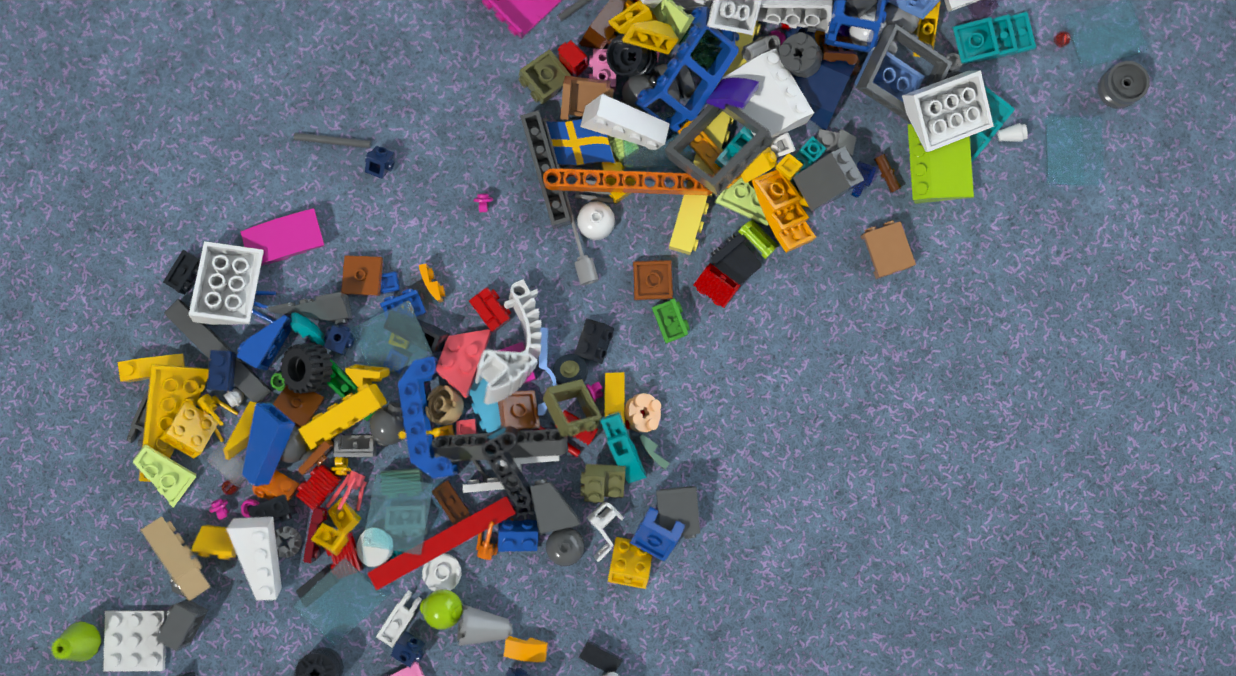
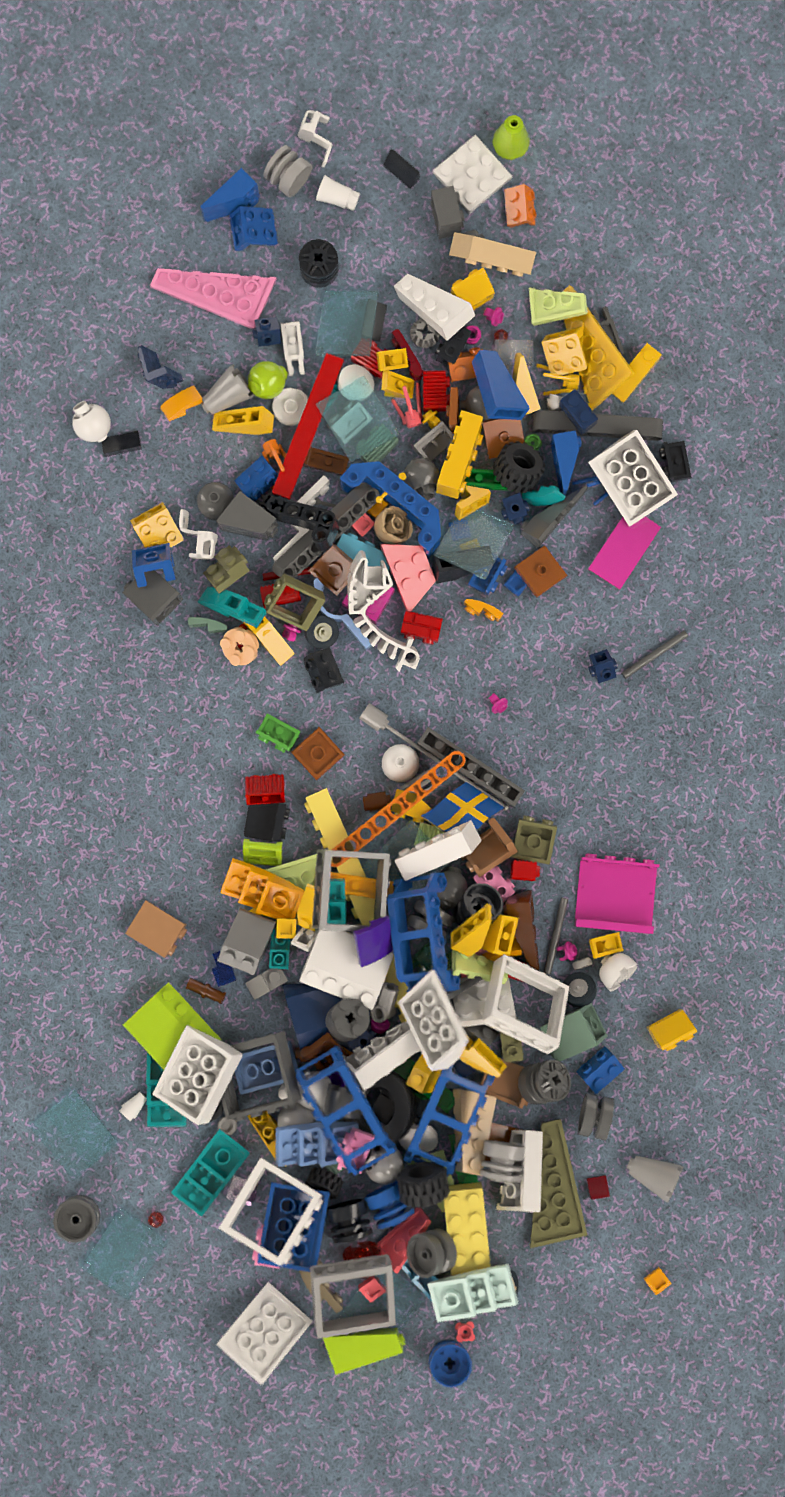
camera: 140 degrees right, 0 degrees up
(120, 581) = (520, 205): none -> orange bracket
(488, 591) = (244, 421): none -> yellow slope
(639, 205) = (376, 801): none -> reddish brown brick

